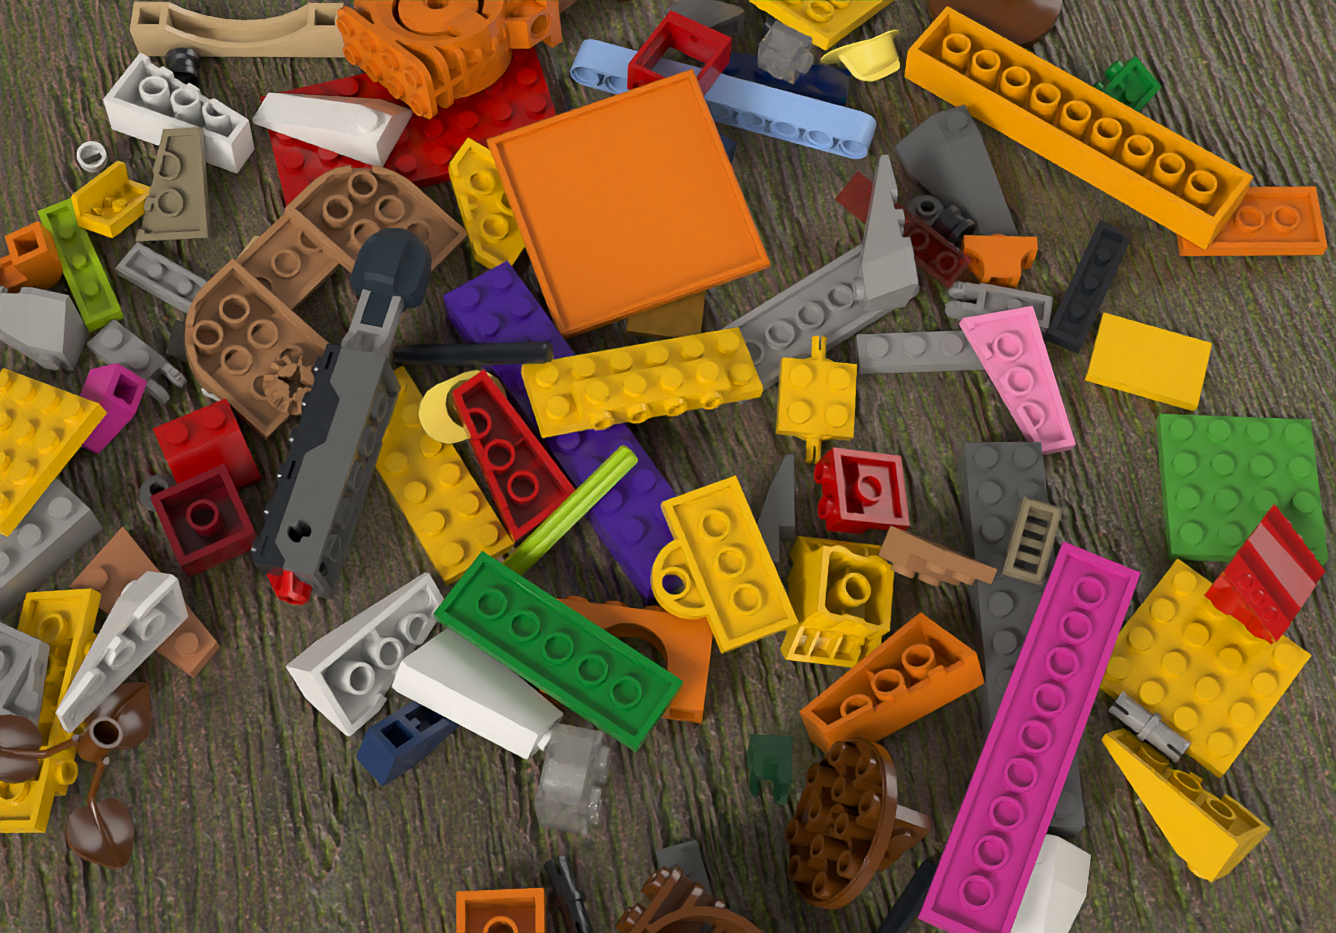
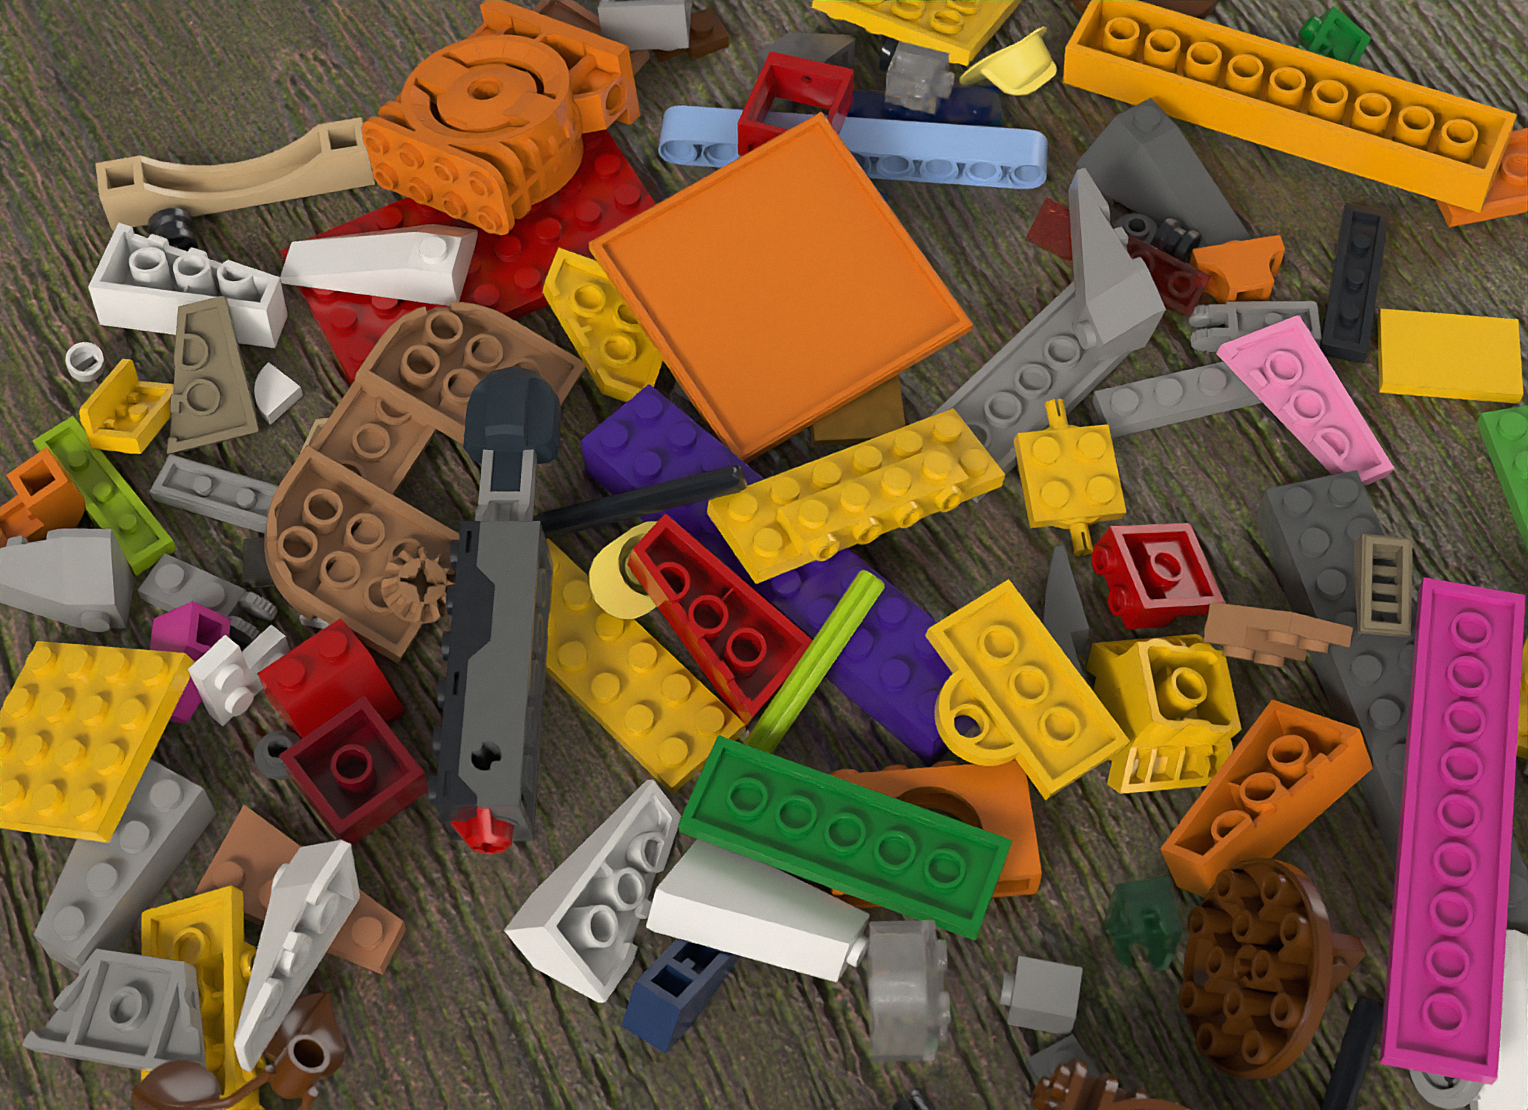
camera: 10 degrees left, 5 degrees down
(133, 429) = (229, 677): none -> white plate
(228, 209) = (275, 393): none -> white tile
(679, 804) = (1042, 995): none -> light grey brick

